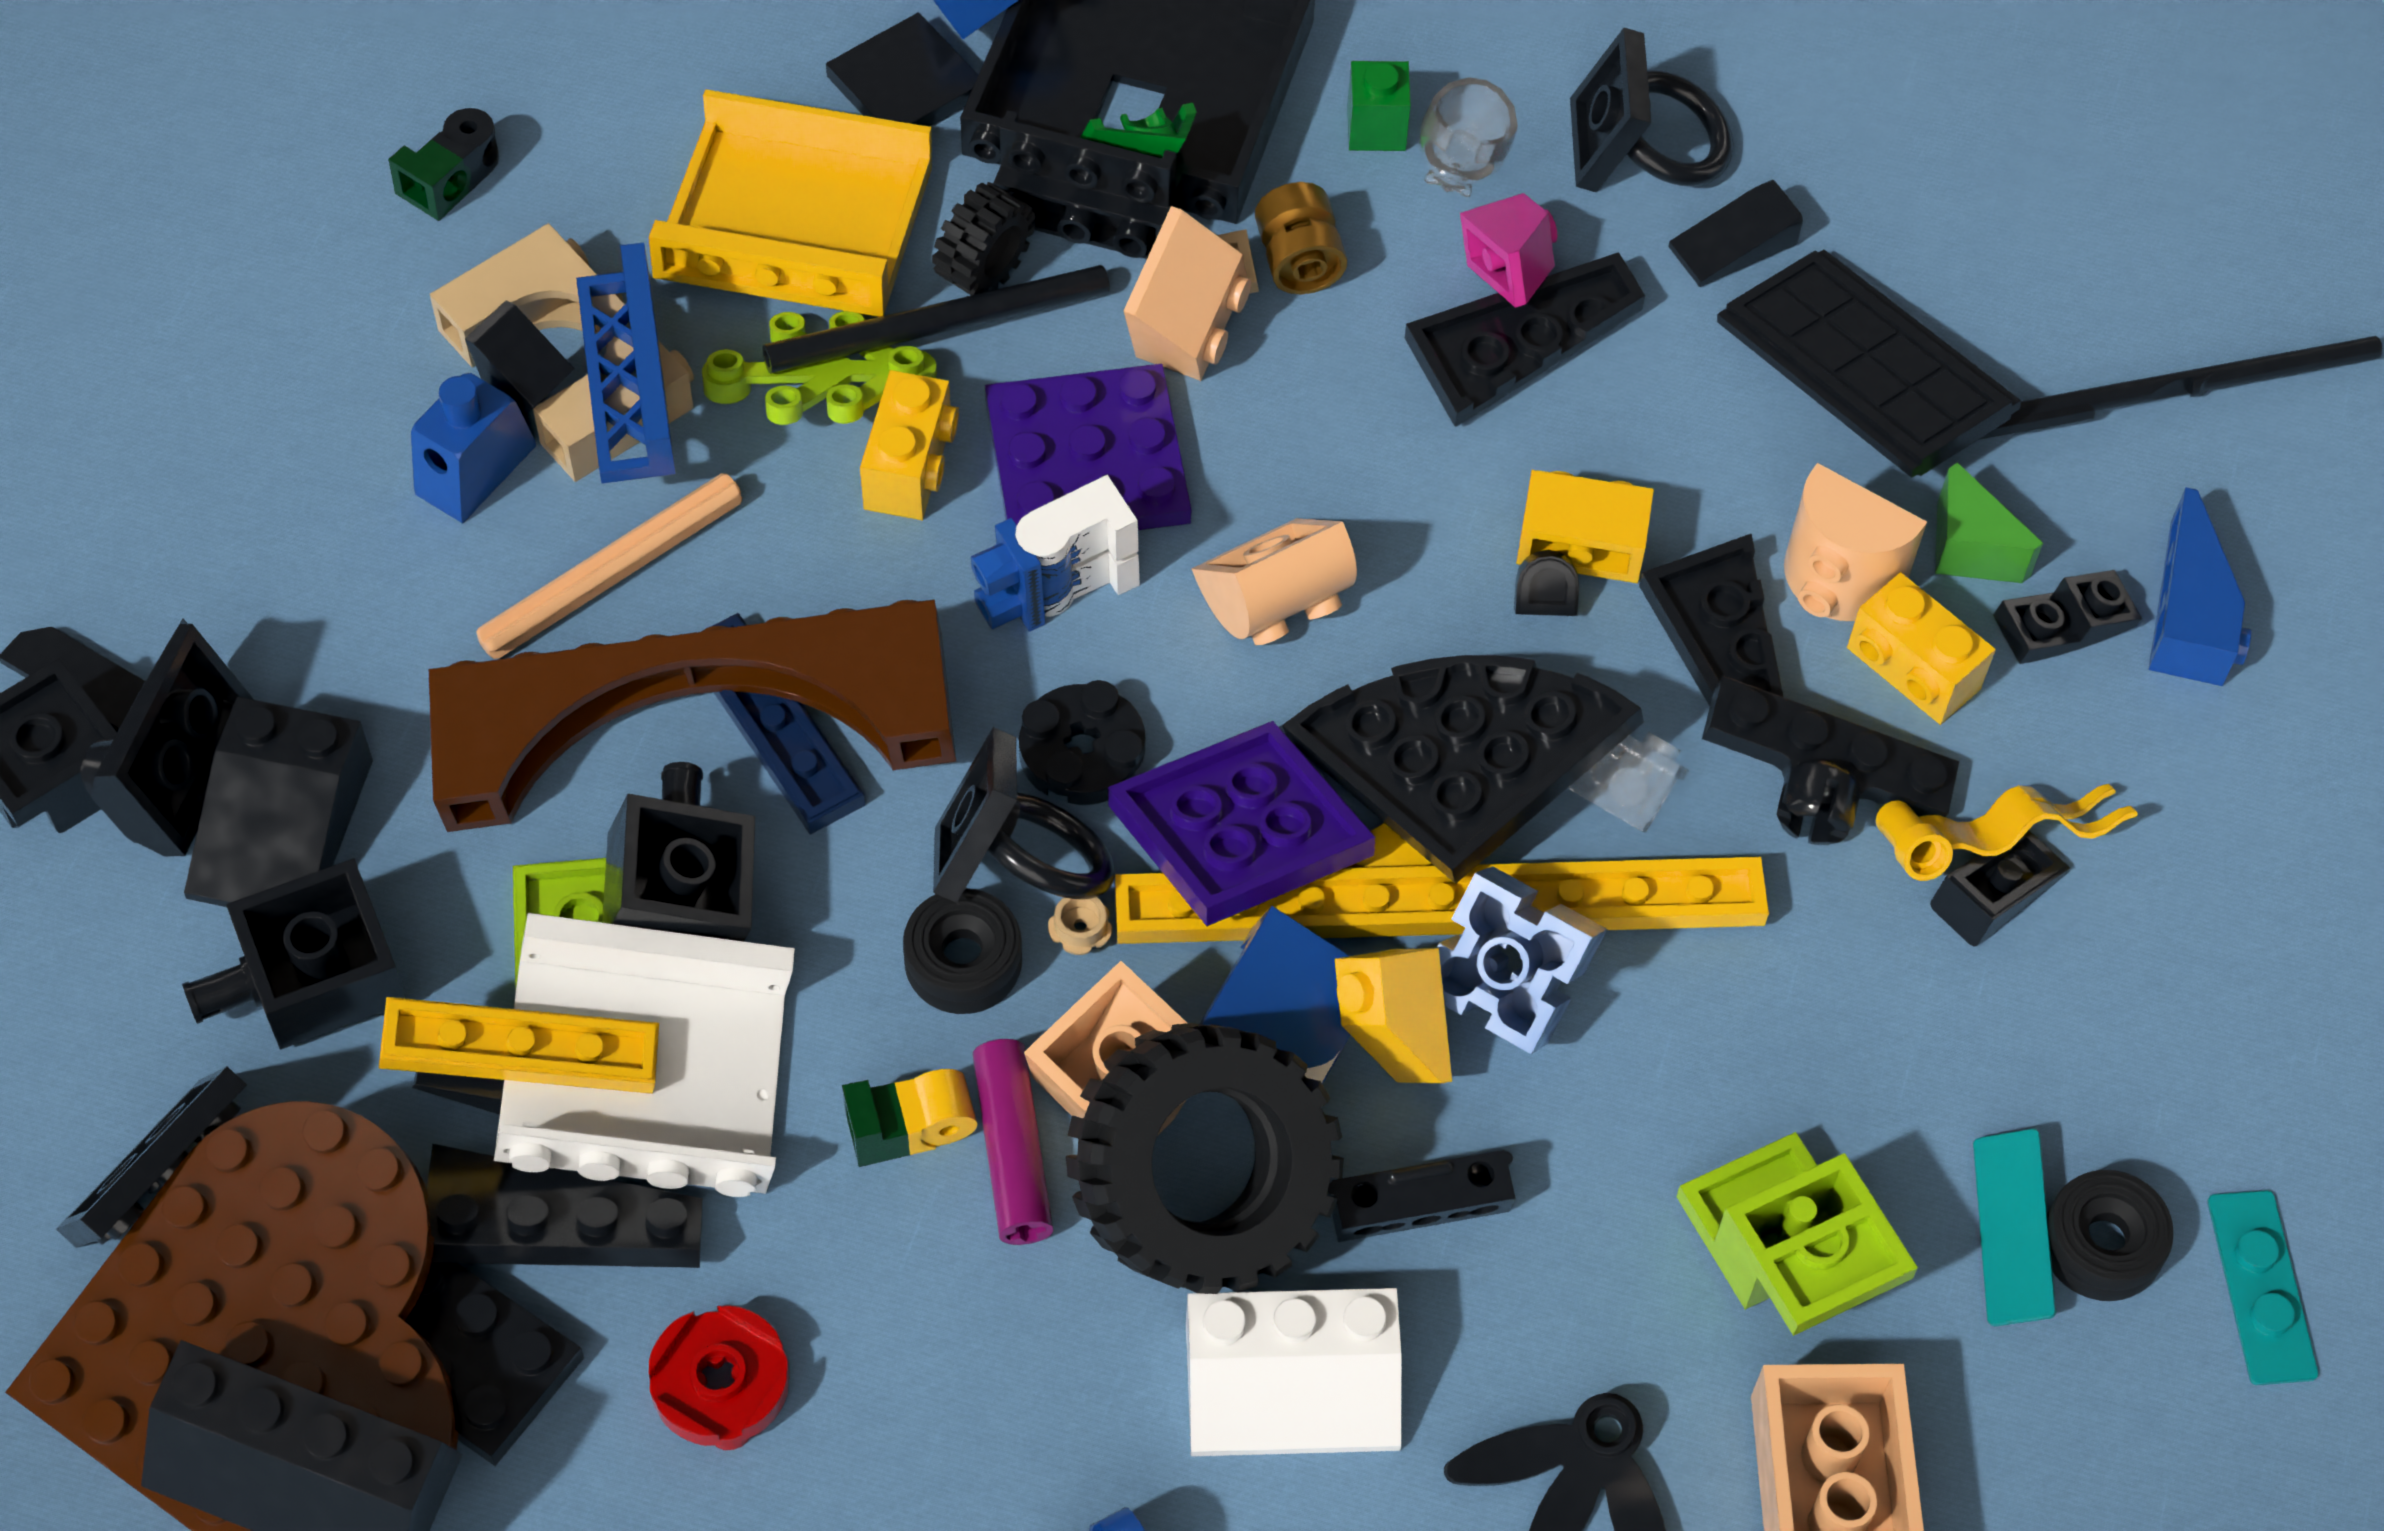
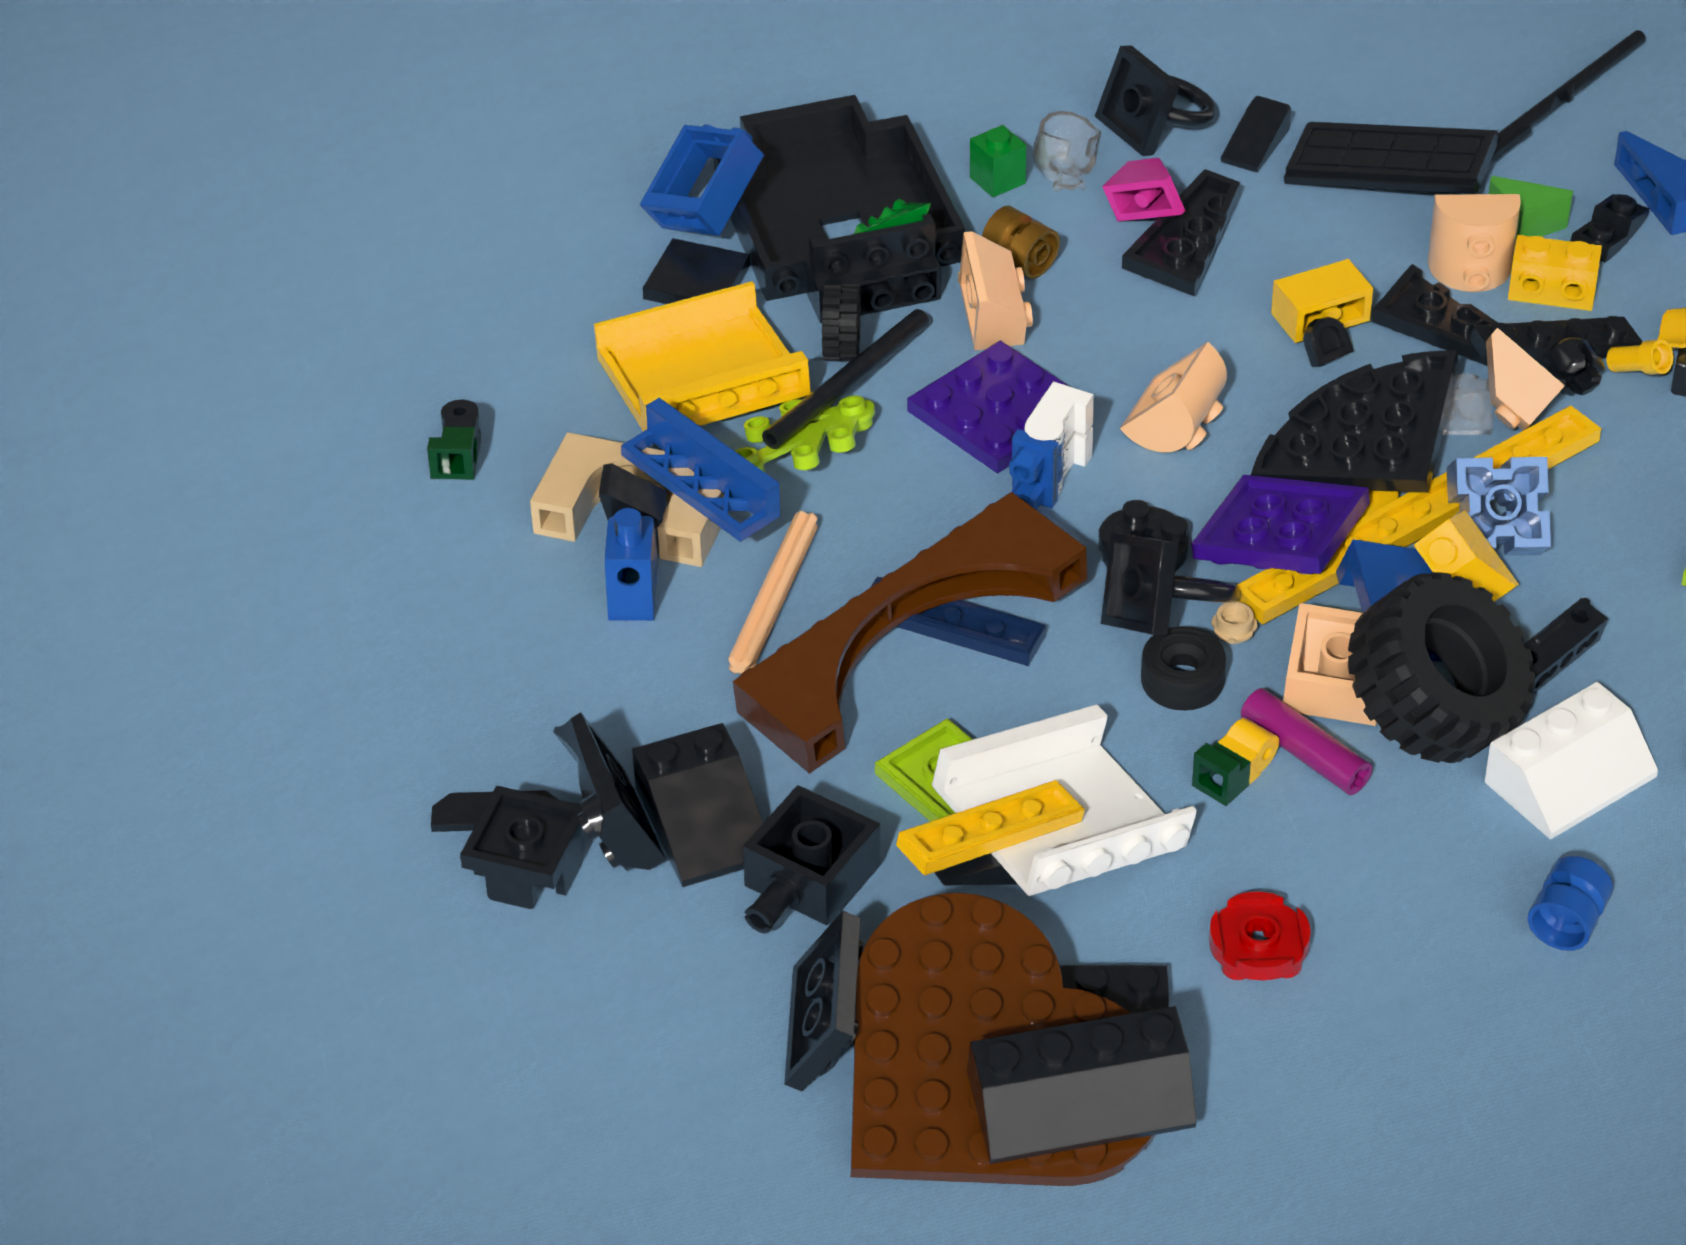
camera: 30 degrees left, 15 degrees down
(554, 1217) = (1105, 905): black wing -> none
(680, 862) = (987, 694): black brick -> none
(907, 445) = (897, 444): yellow brick -> none
(1697, 793) = (1517, 382): none -> light nougat slope

